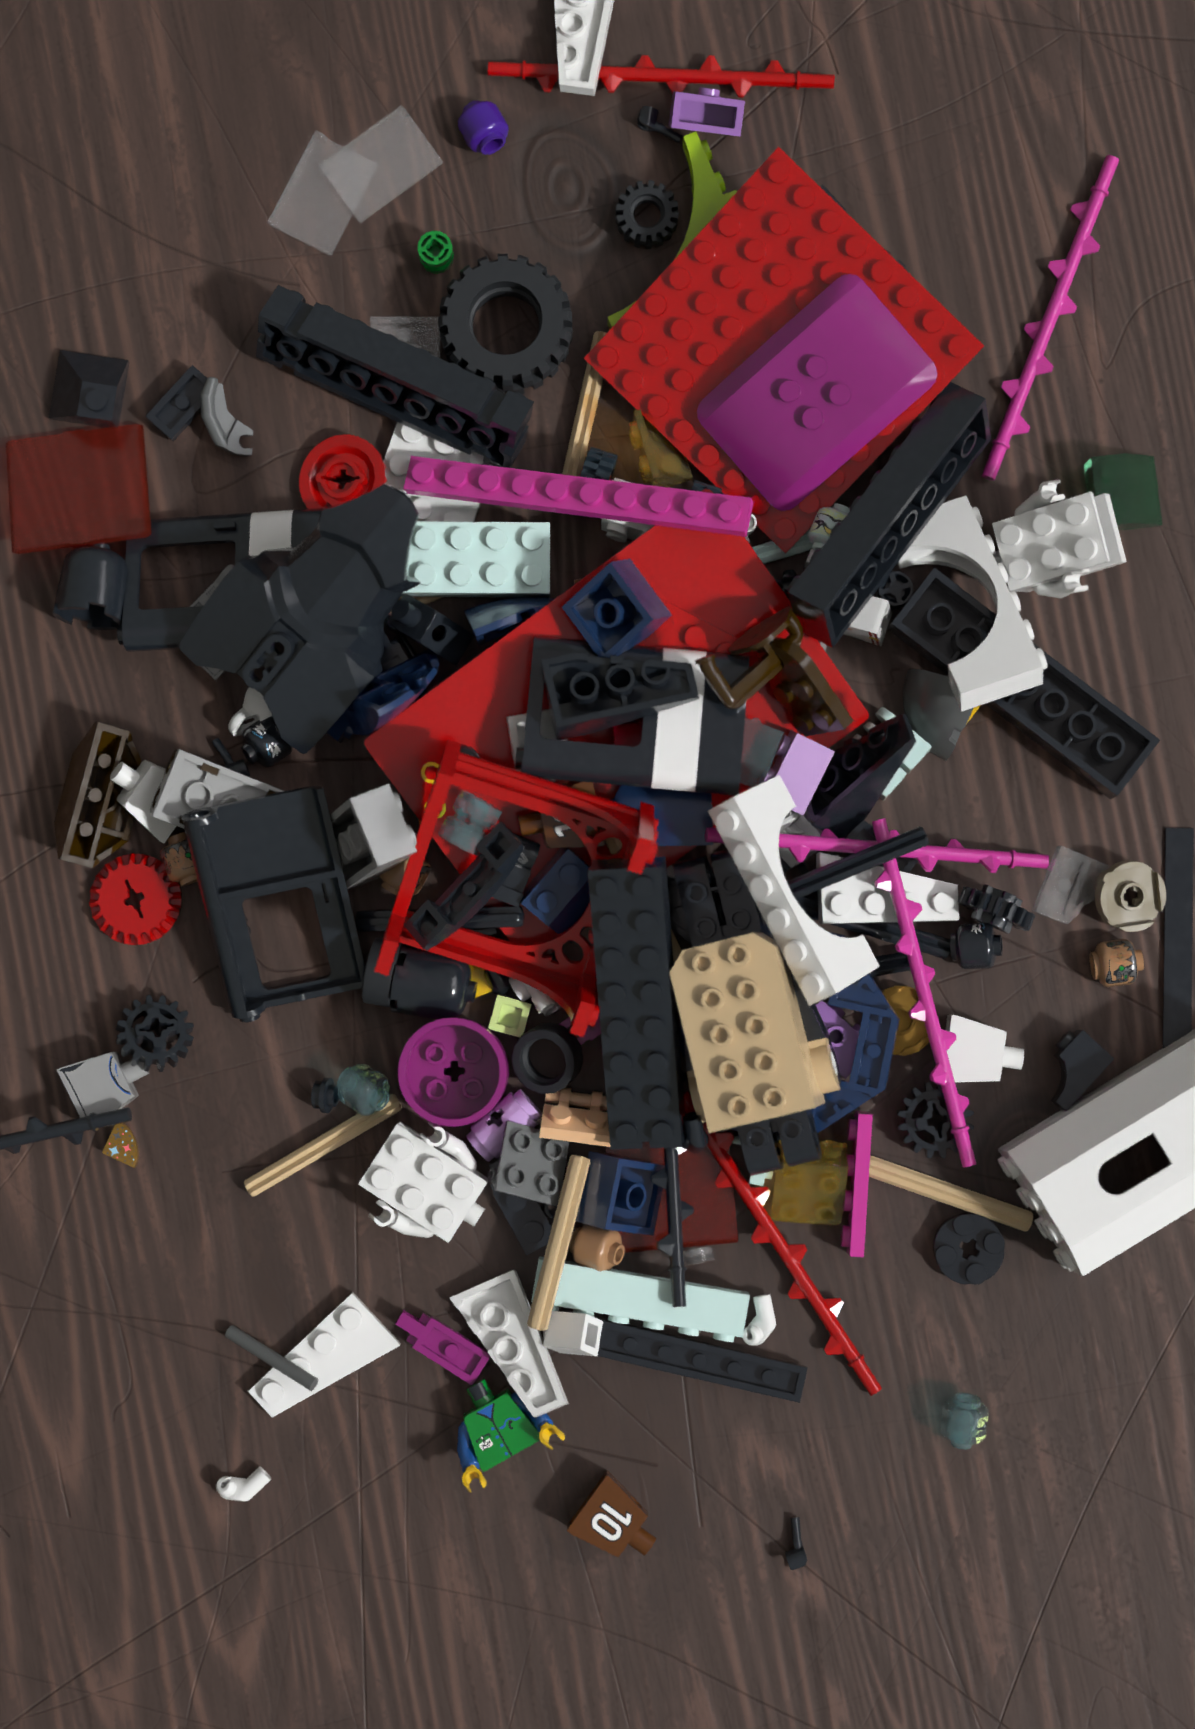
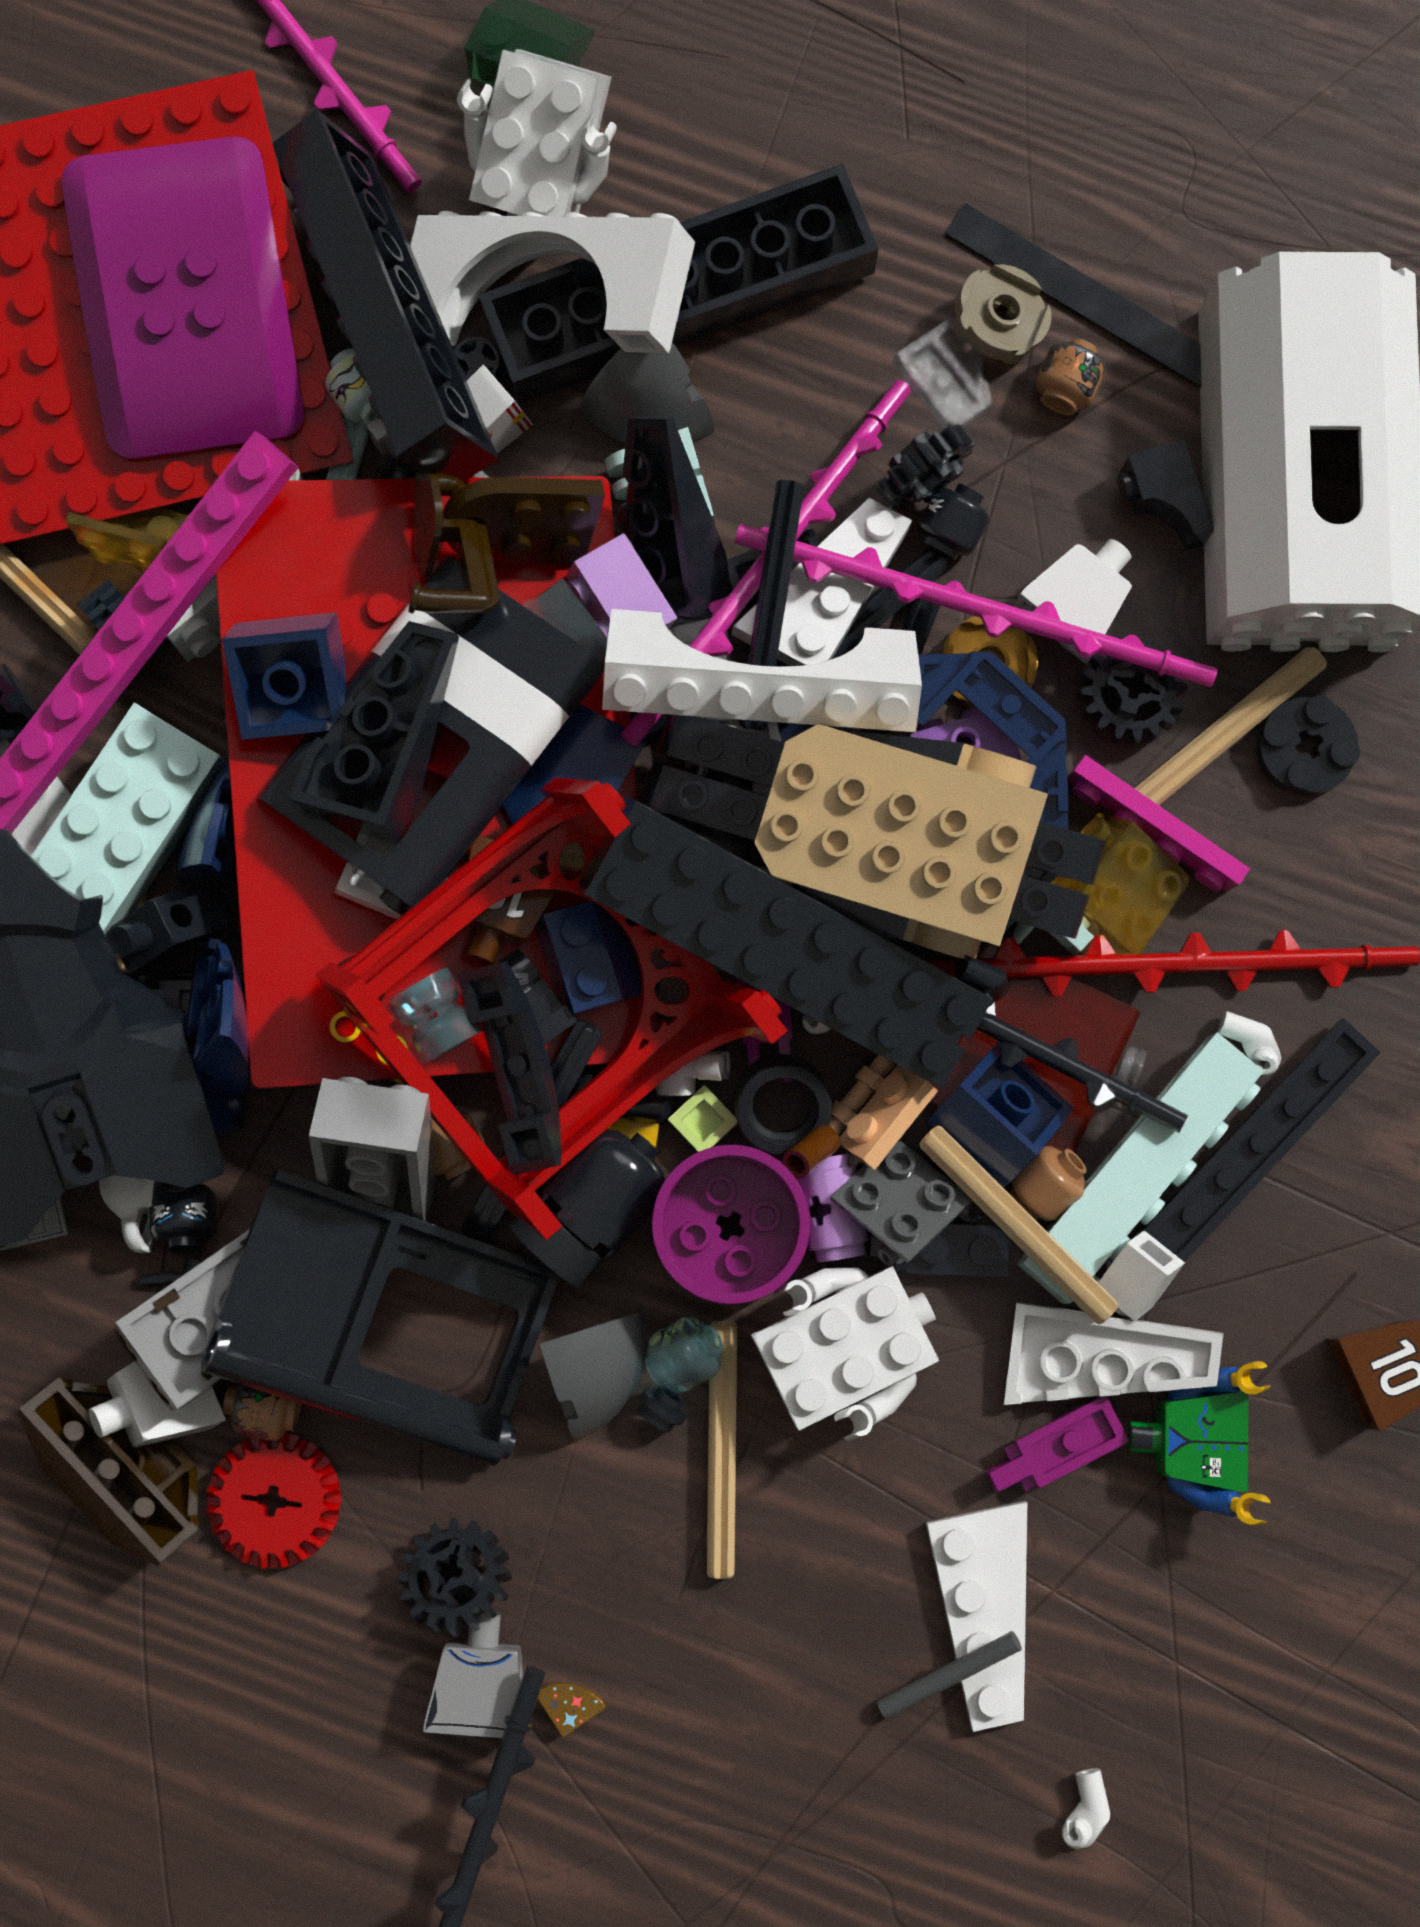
camera: 60 degrees left, 5 degrees down
(323, 1043) = (596, 1371): none -> dark grey brick
(526, 1093) = (811, 1151): none -> reddish brown piece

